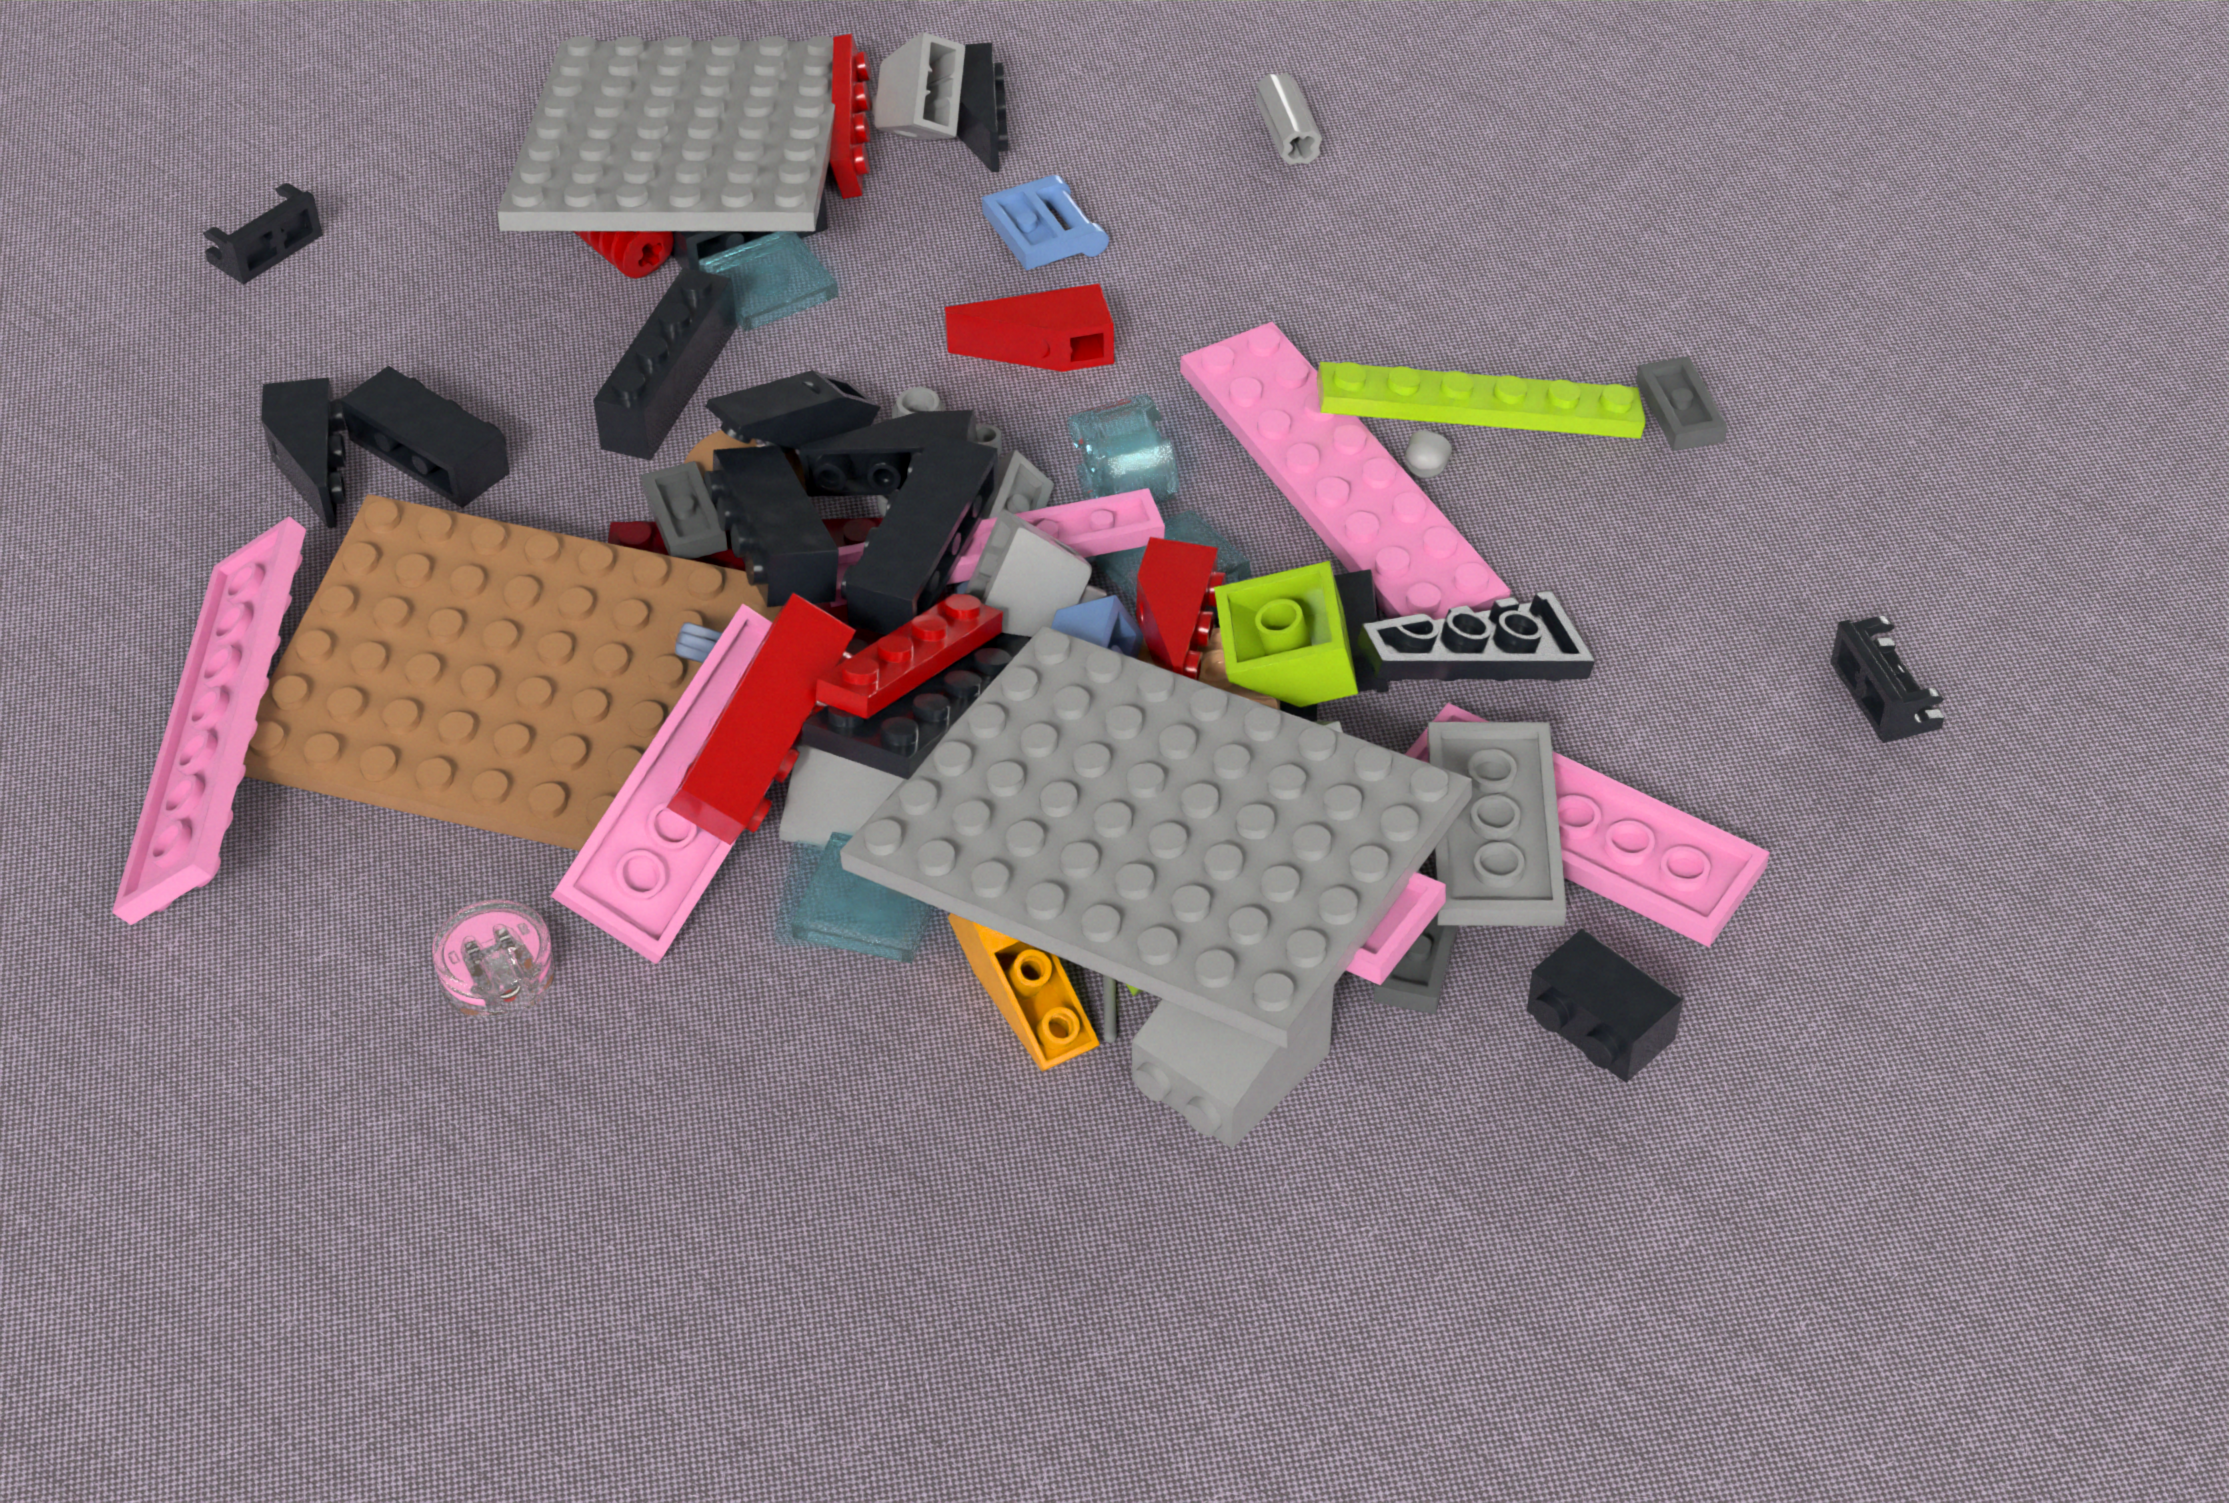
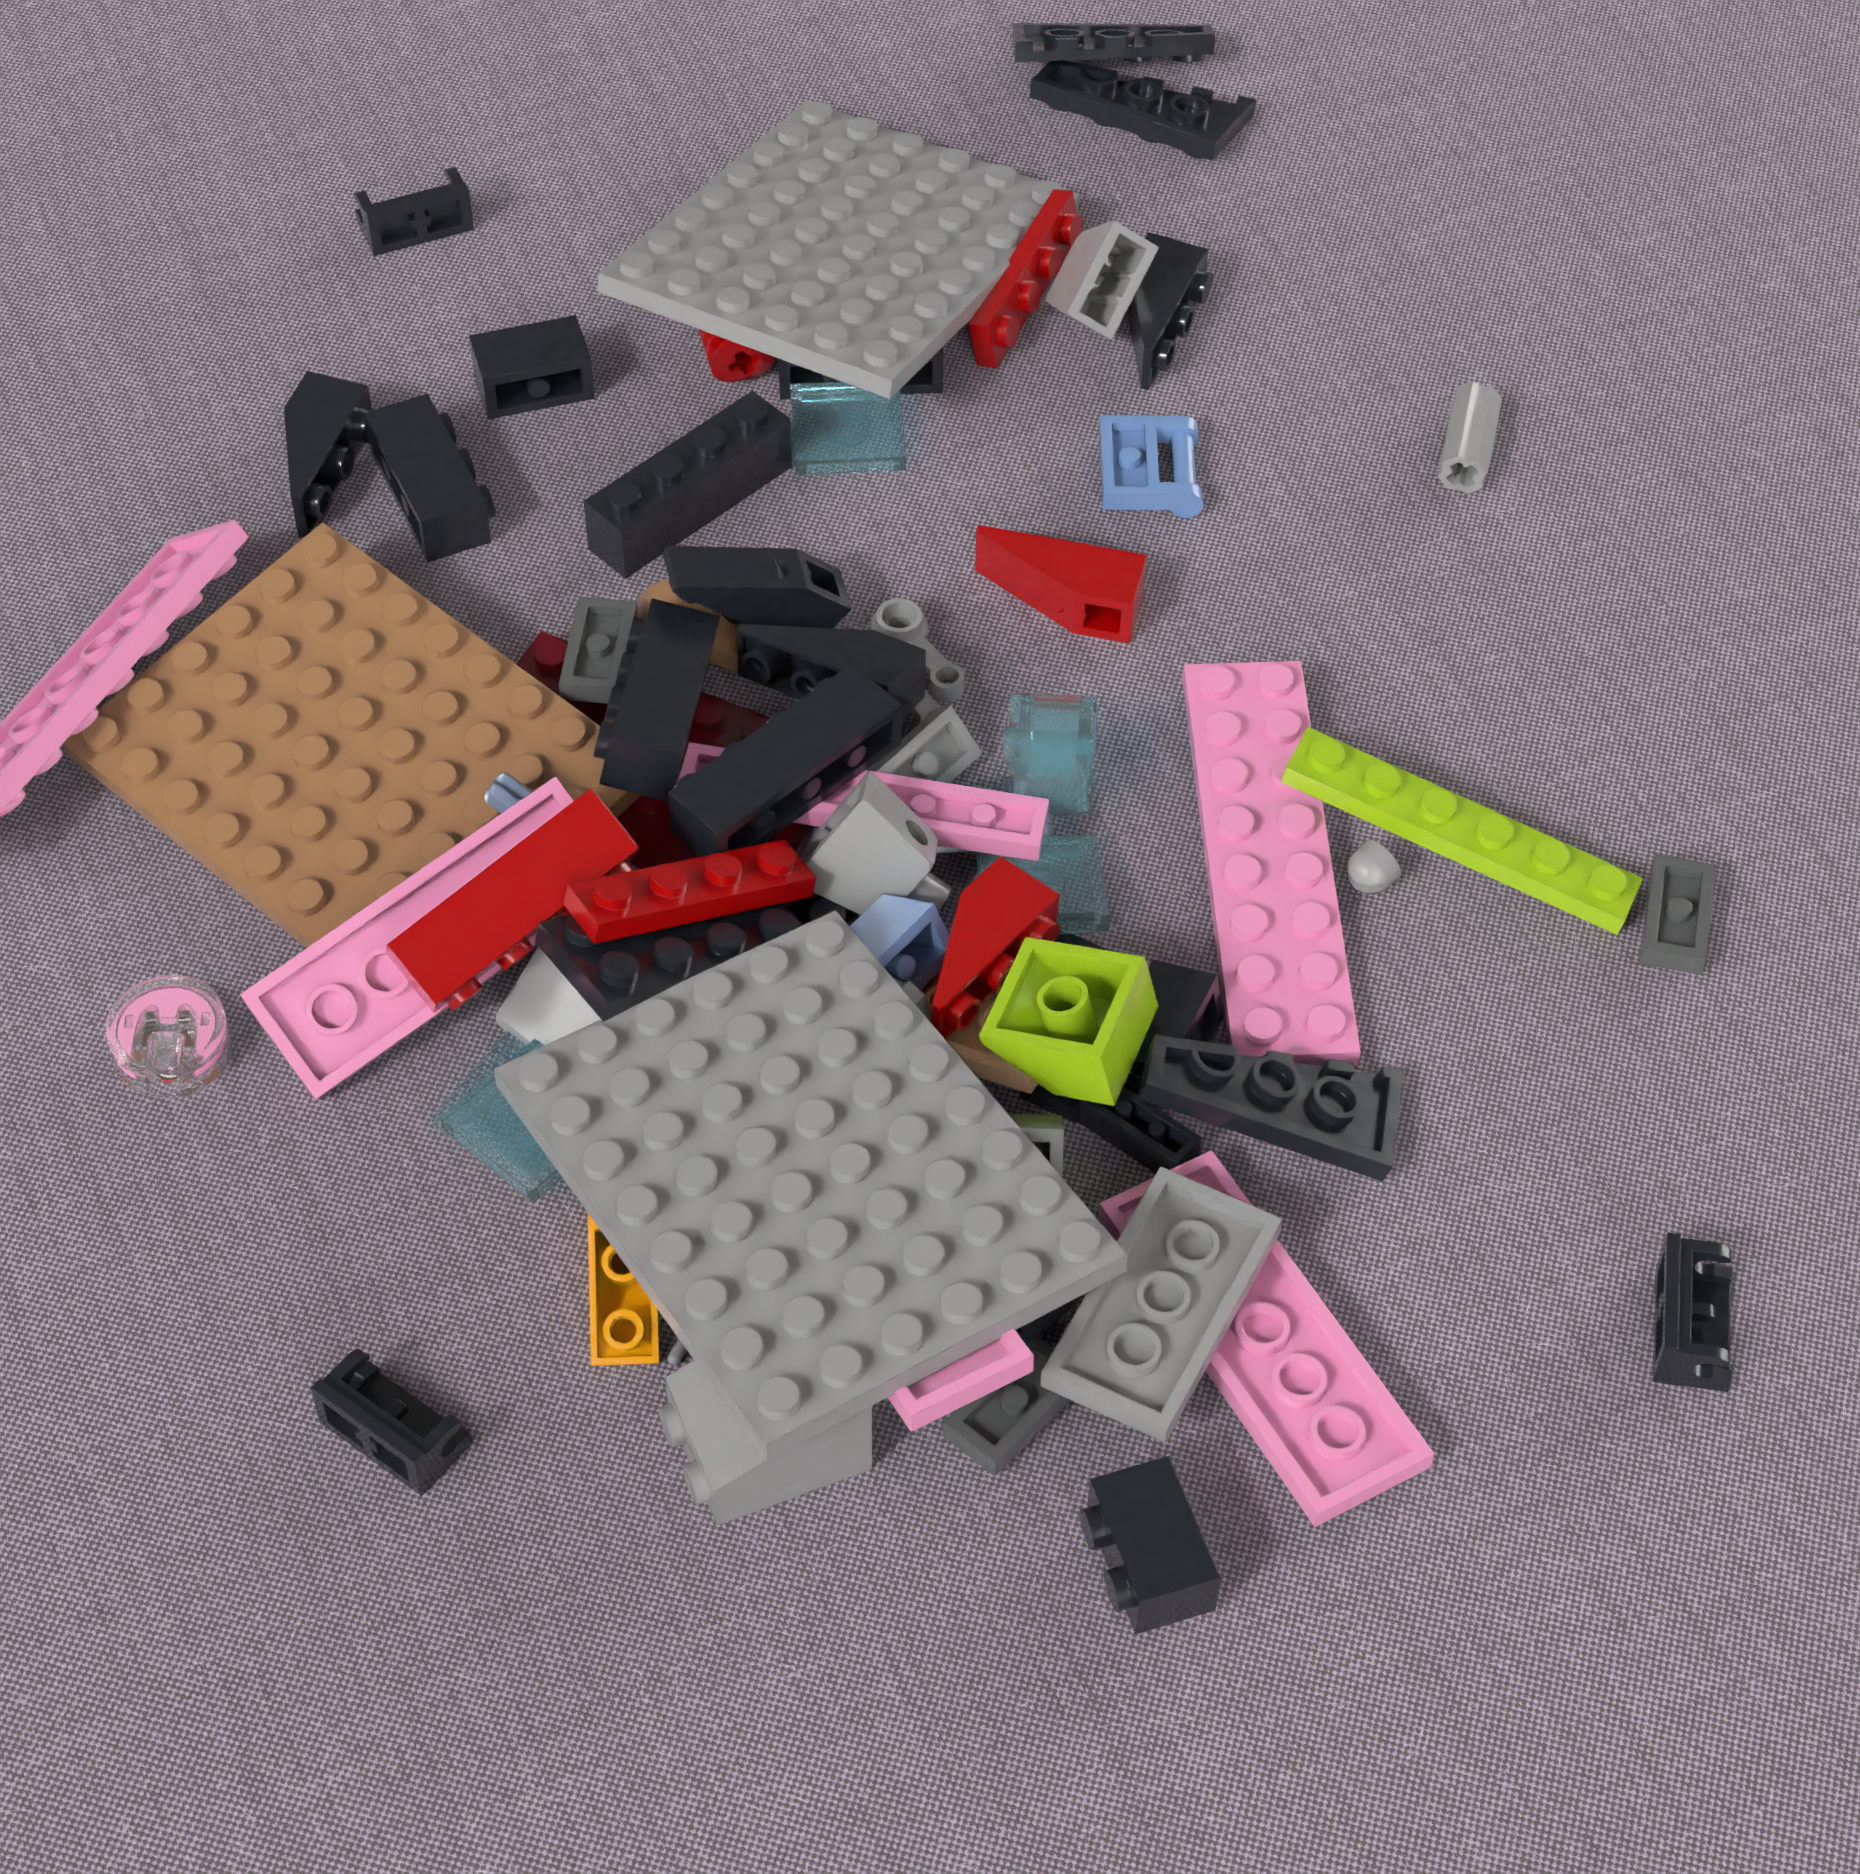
camera: 25 degrees right, 5 degrees up
(460, 320) = (532, 367): none -> black brick
(904, 1186) = (388, 1423): none -> black hinge
(1380, 714) = (1141, 1131): none -> black piece

